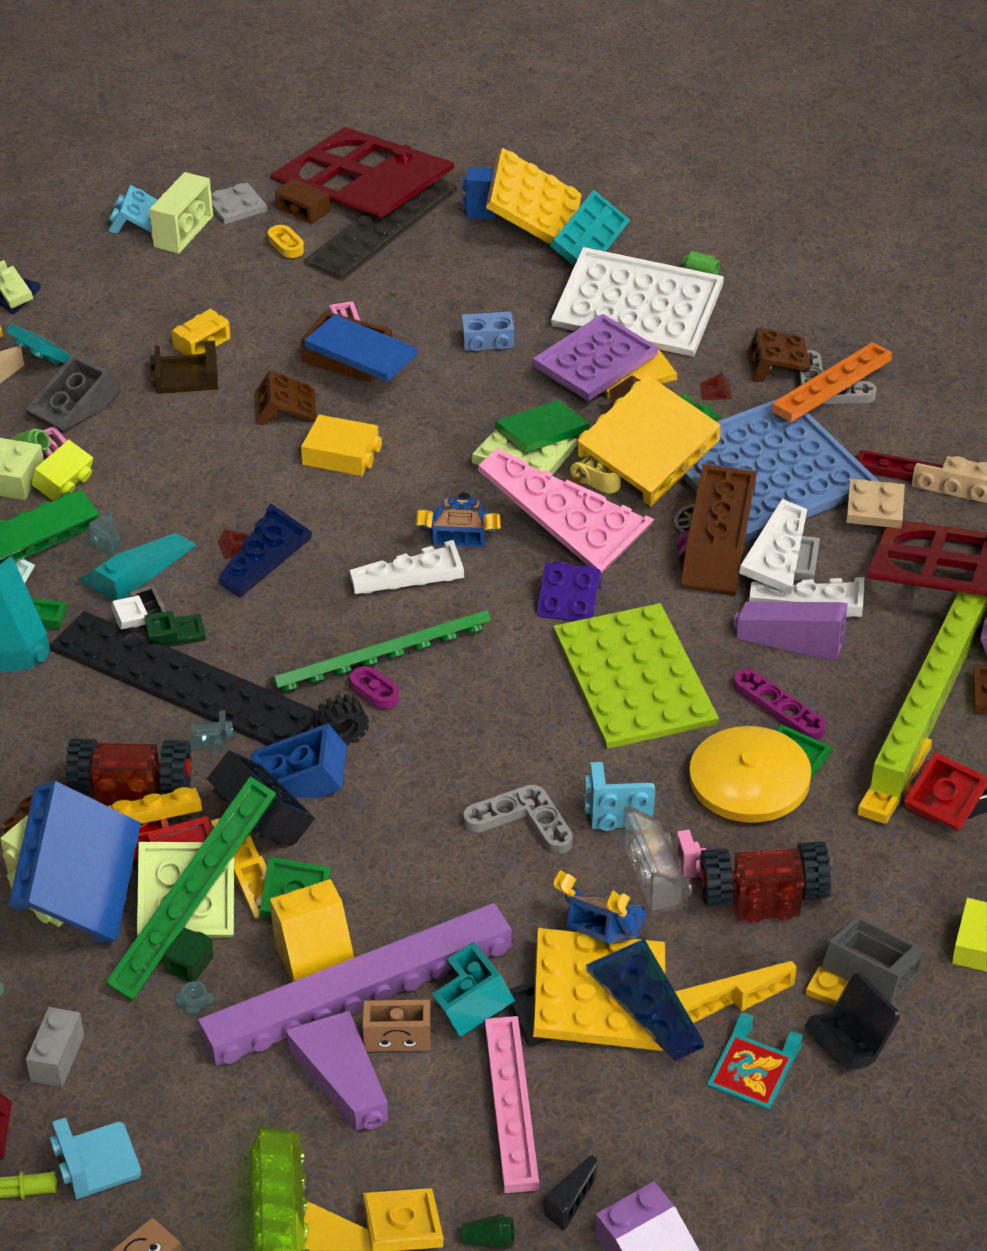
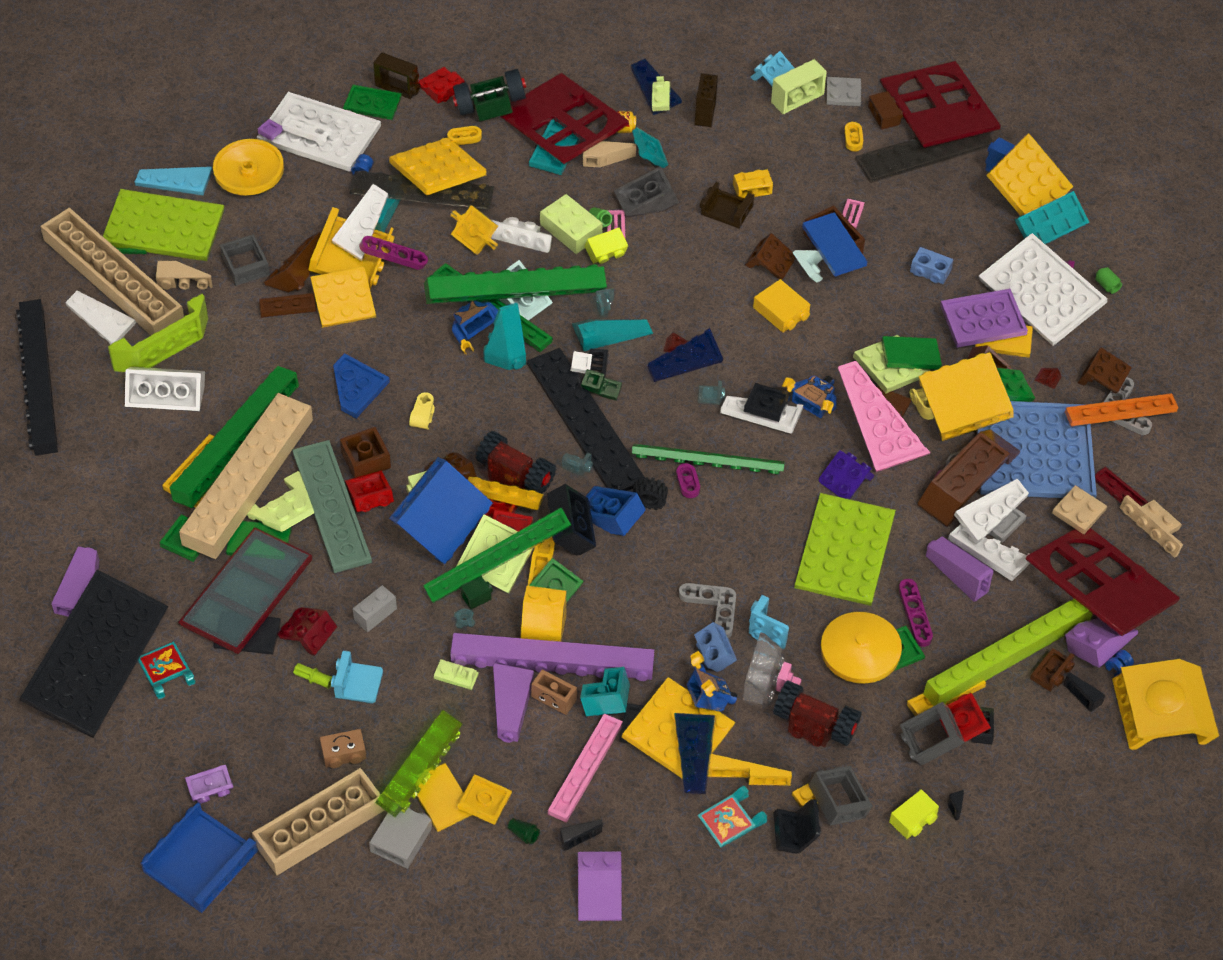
camera: 30 degrees right, 10 degrees up
(77, 266) = (706, 100): none -> dark brown window
(235, 1076) = (456, 674): none -> yellowish green plate
(327, 578) = (711, 394): none -> clear light blue bracket
(337, 384) = (809, 261): none -> light aqua slope
(410, 552) = (767, 402): none -> black plate
(571, 859) = (718, 651): none -> medium blue brick
(919, 790) = (937, 712): none -> dark grey window

